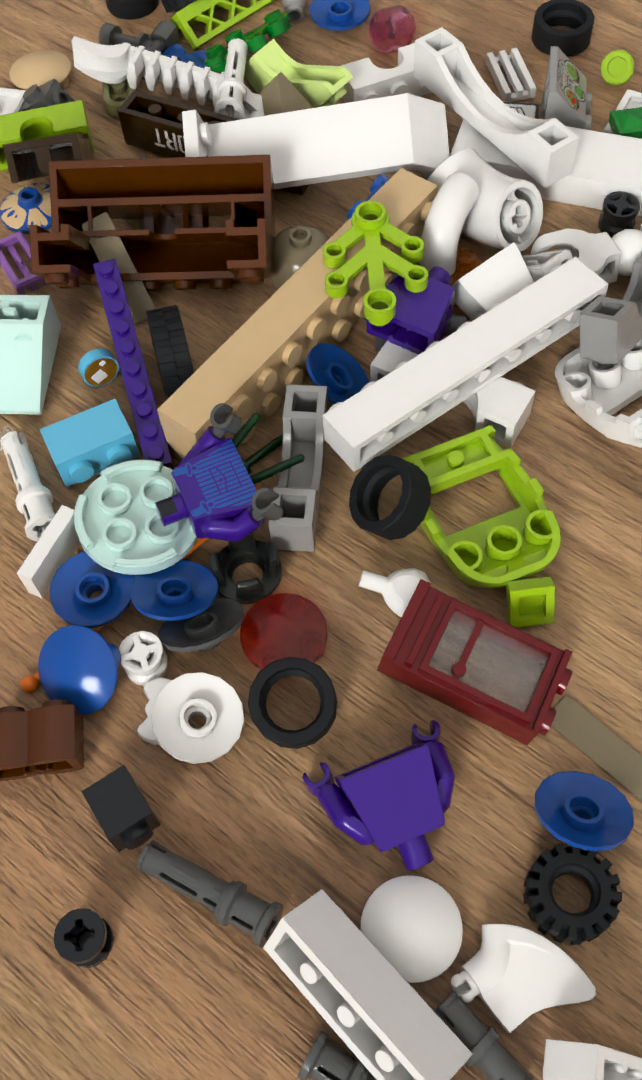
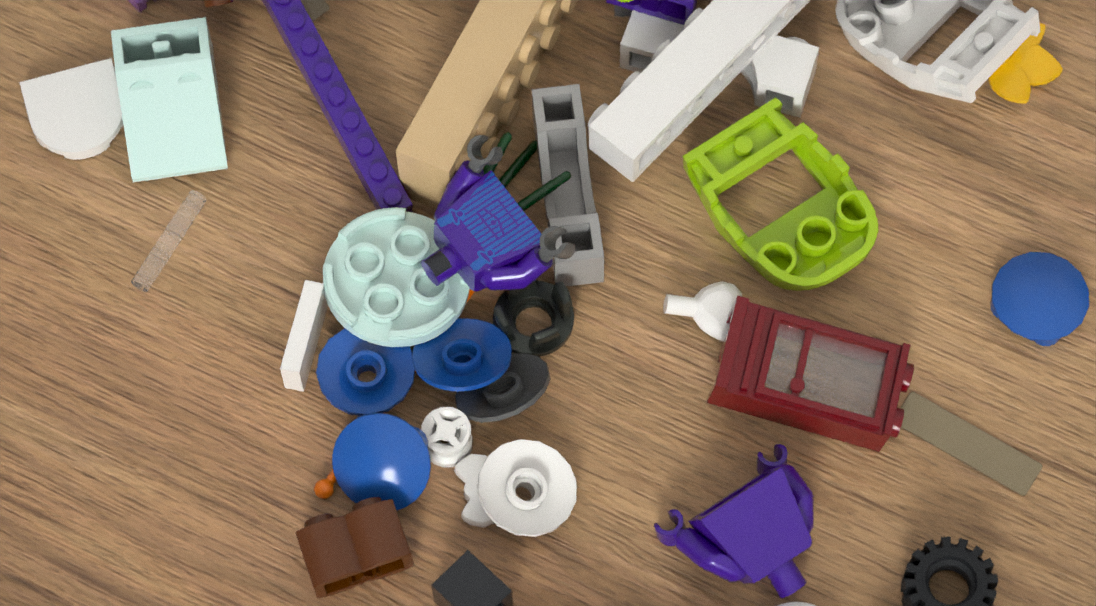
camera: 15 degrees left, 5 degrees up
(32, 498) = (258, 275): white pin -> none
(90, 442) = (309, 198): medium azure brick -> none
(98, 367) = (283, 97): tile -> none
(170, 347) = (376, 65): black tyre -> none
(258, 696) = (637, 417): black tyre -> none
(283, 628) = (594, 381): clear red dish -> none
(336, 370) = (583, 59): blue dish -> none
(412, 503) = (649, 200): black tyre -> none
(530, 601) = (856, 297): lime tile -> none
(584, 811) = (948, 504): blue dish -> none

